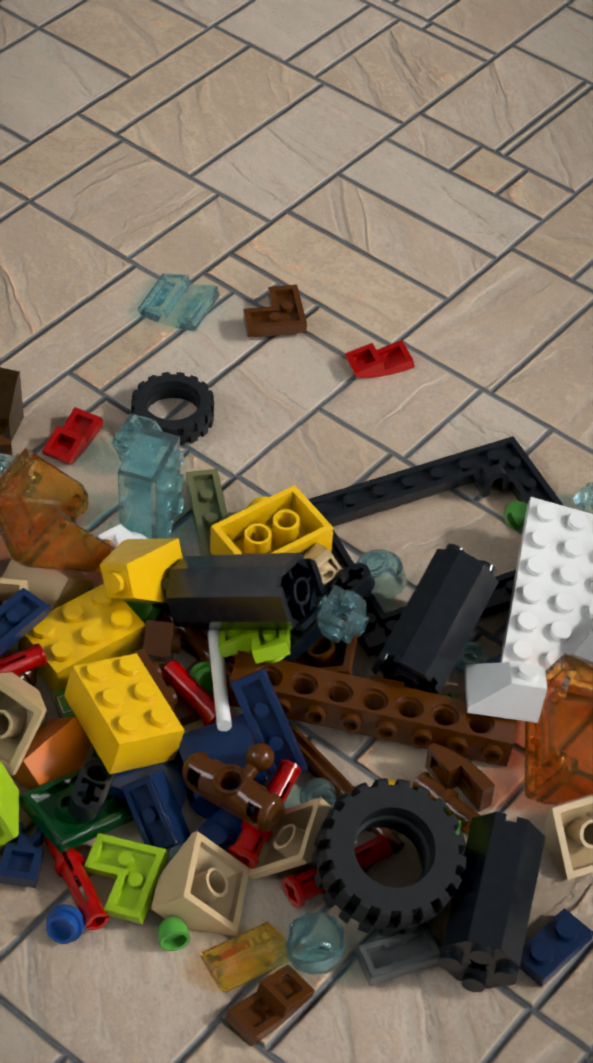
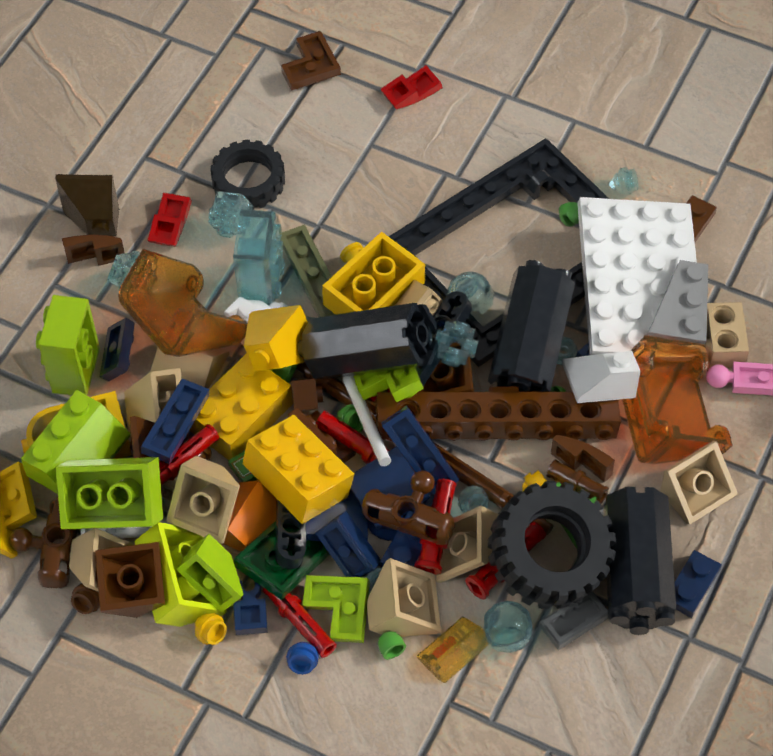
camera: 10 degrees left, 10 degrees up
(178, 302) = (220, 68): clear light blue slope -> none
(270, 1006) = (484, 685): reddish brown slope -> none

